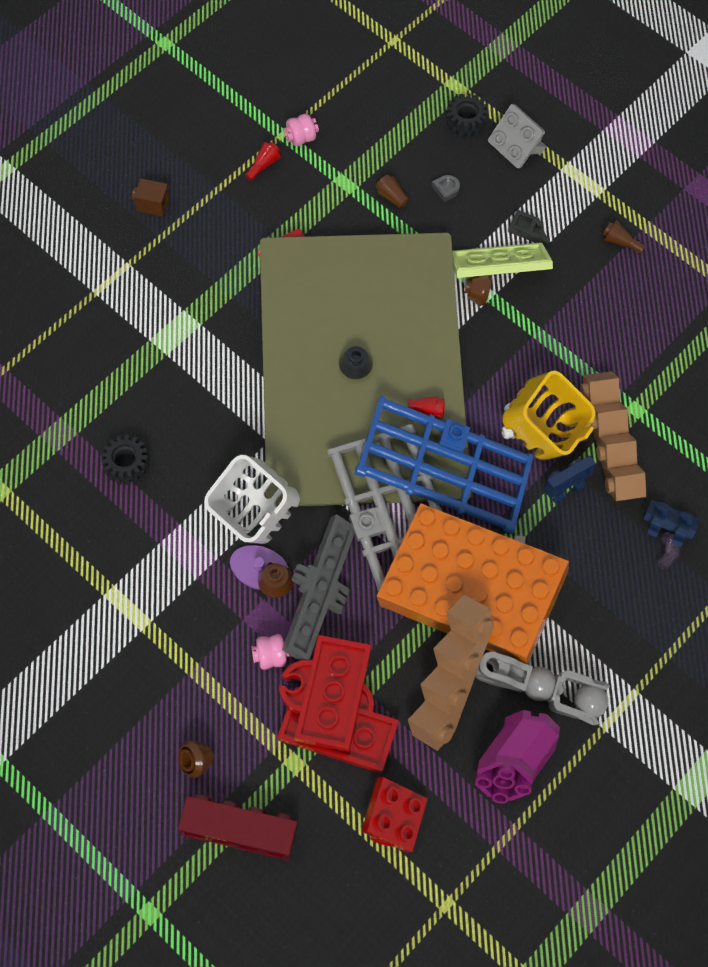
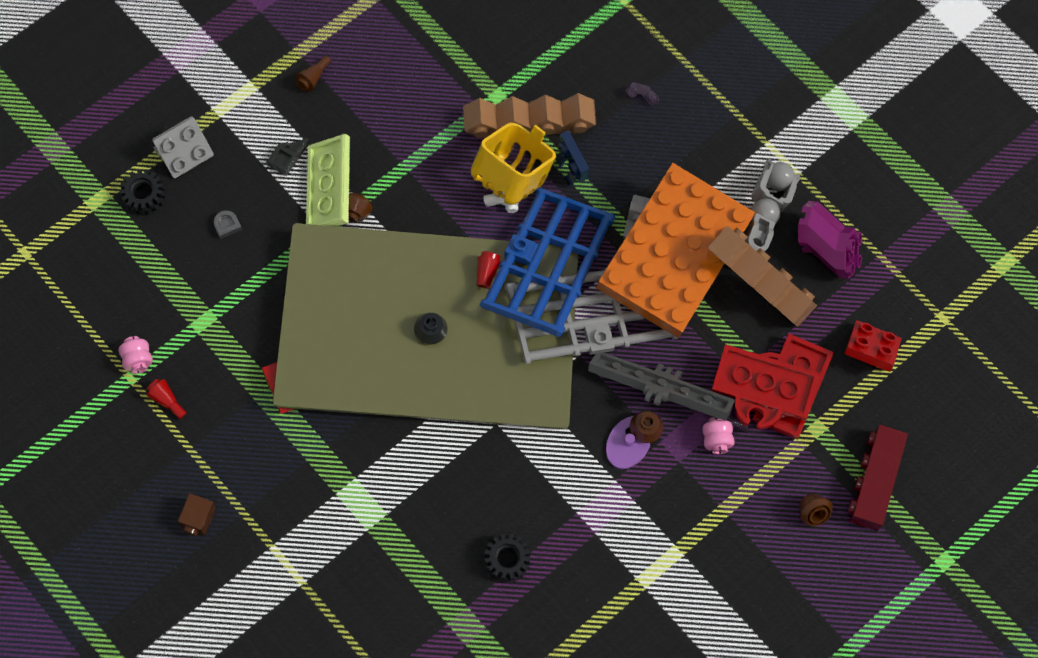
camera: 85 degrees left, 5 degrees up
(269, 513) = (607, 436): white piece -> none
(392, 191) = (225, 275): reddish brown cone -> none
(662, 515) = (615, 85): dark blue plate -> none

